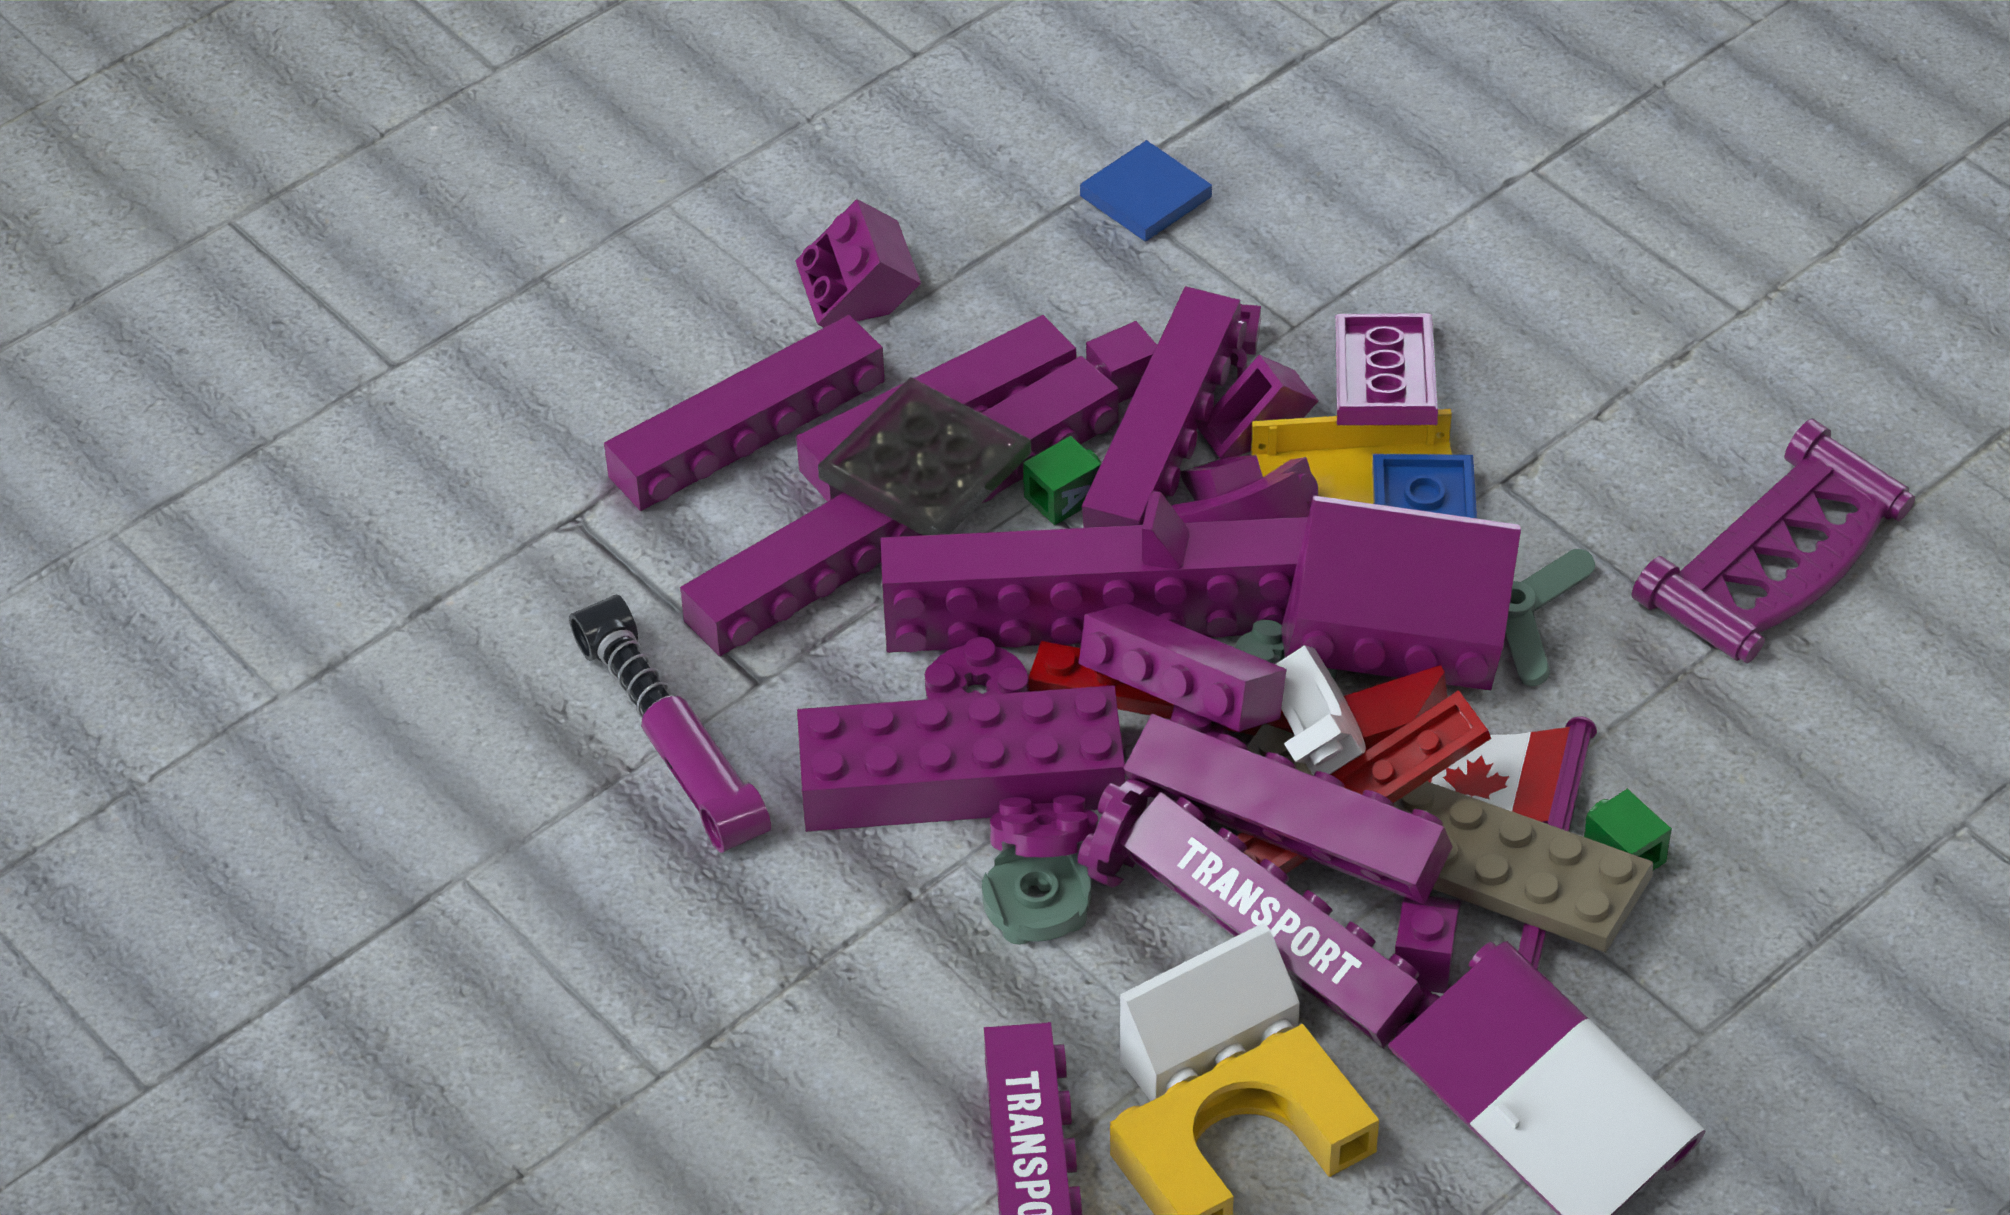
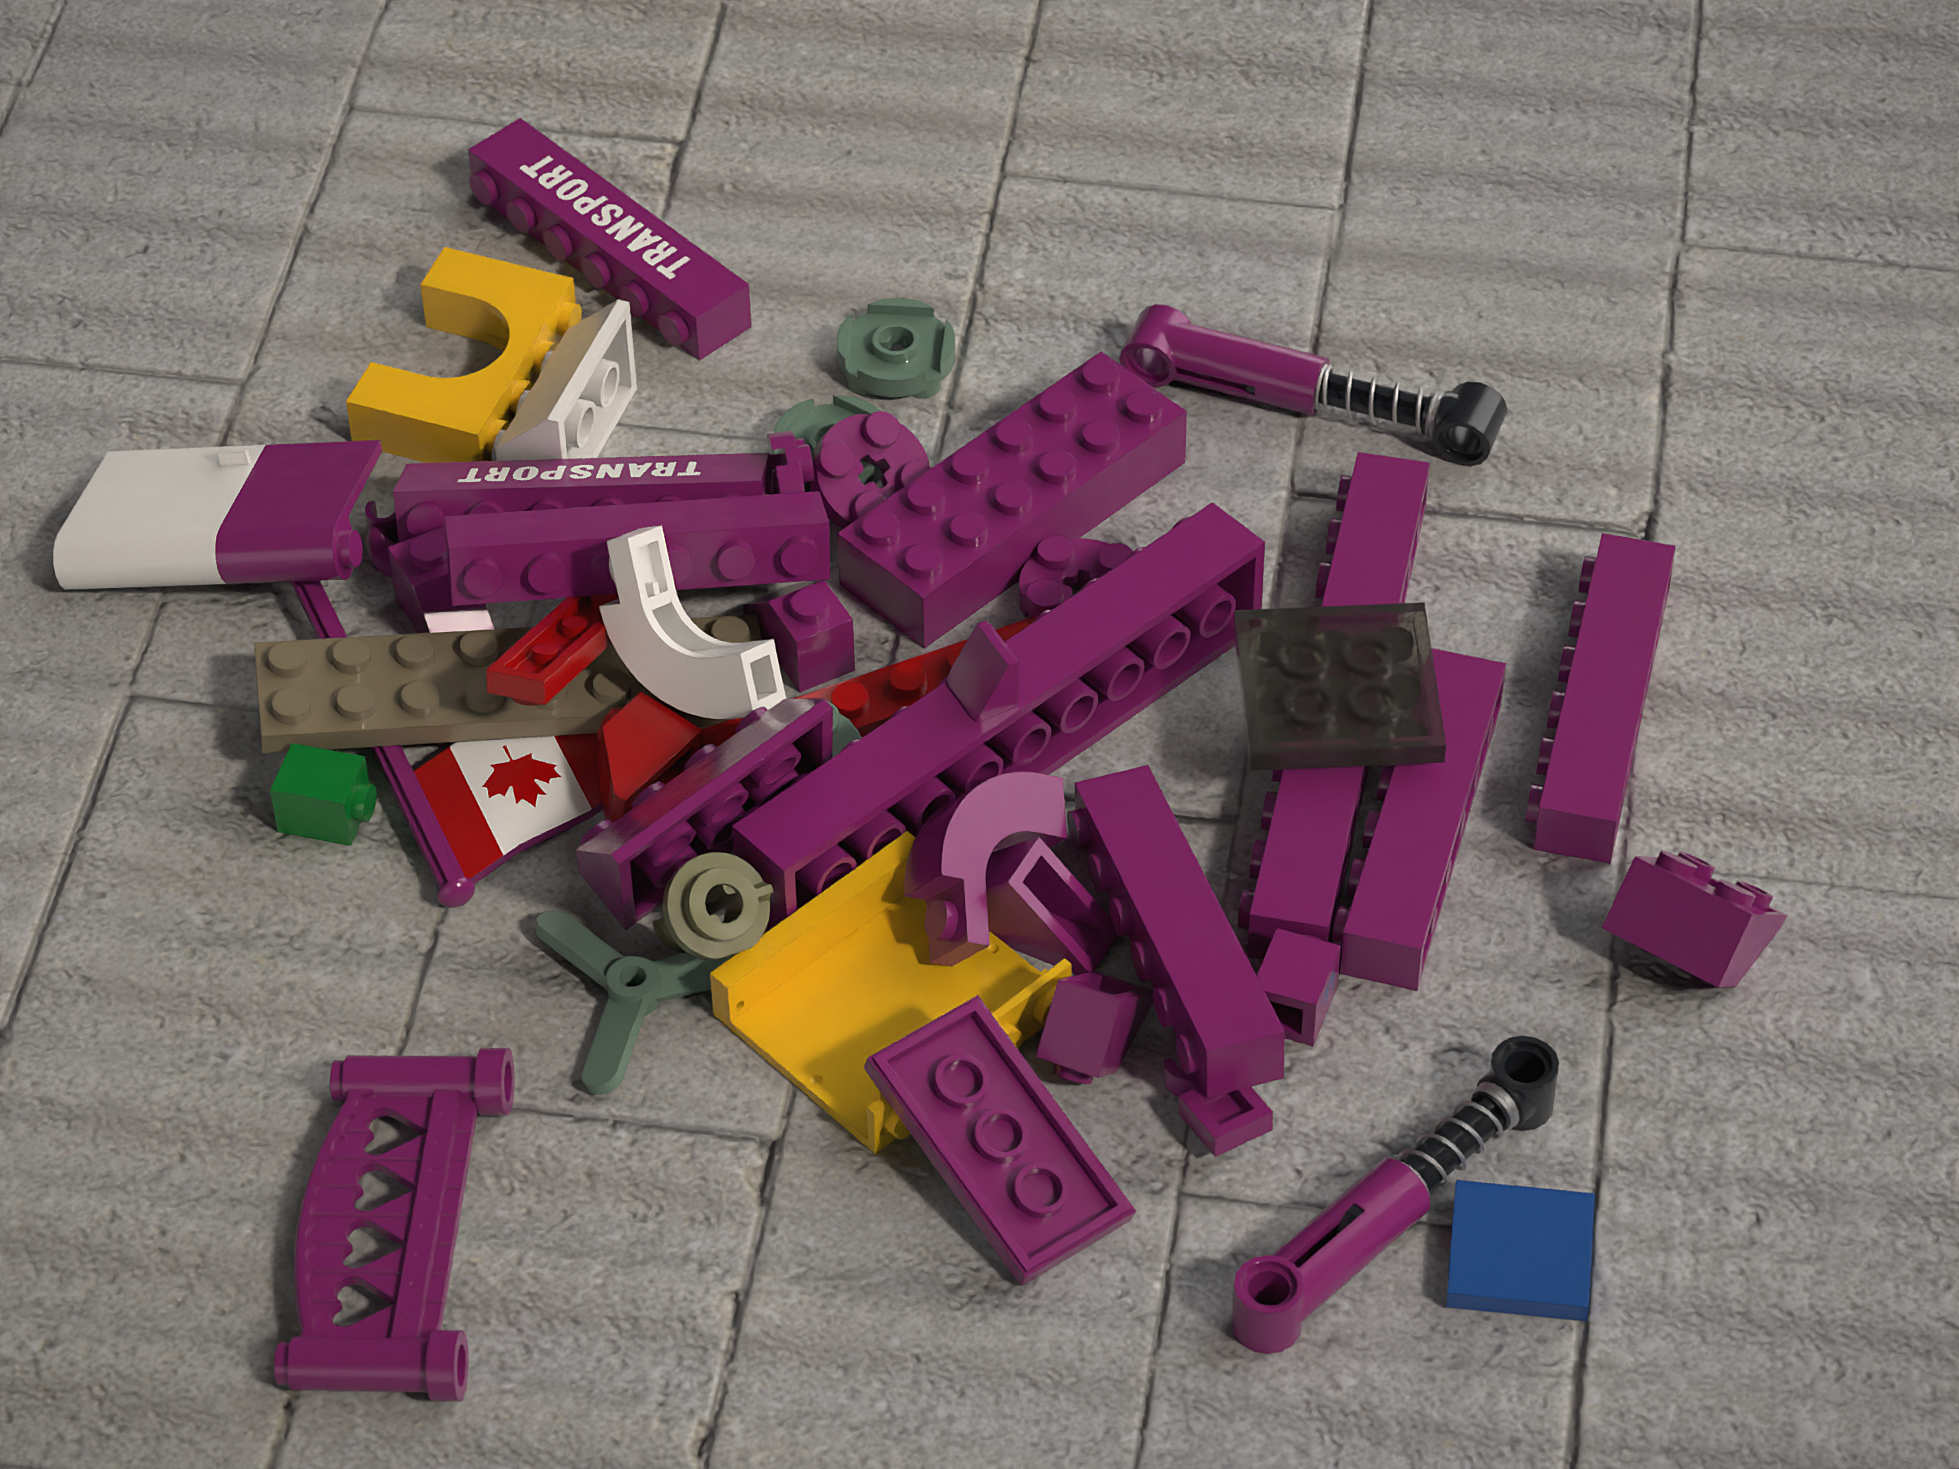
camera: 140 degrees right, 0 degrees up
(911, 971) = (876, 370): none -> sand green plate
(1060, 479) = (1217, 814): green brick -> none
(1182, 667) = (855, 613): magenta brick -> none
(1302, 227) = (1388, 1200): none -> magenta piece
(1425, 482) = (821, 1039): blue tile -> none

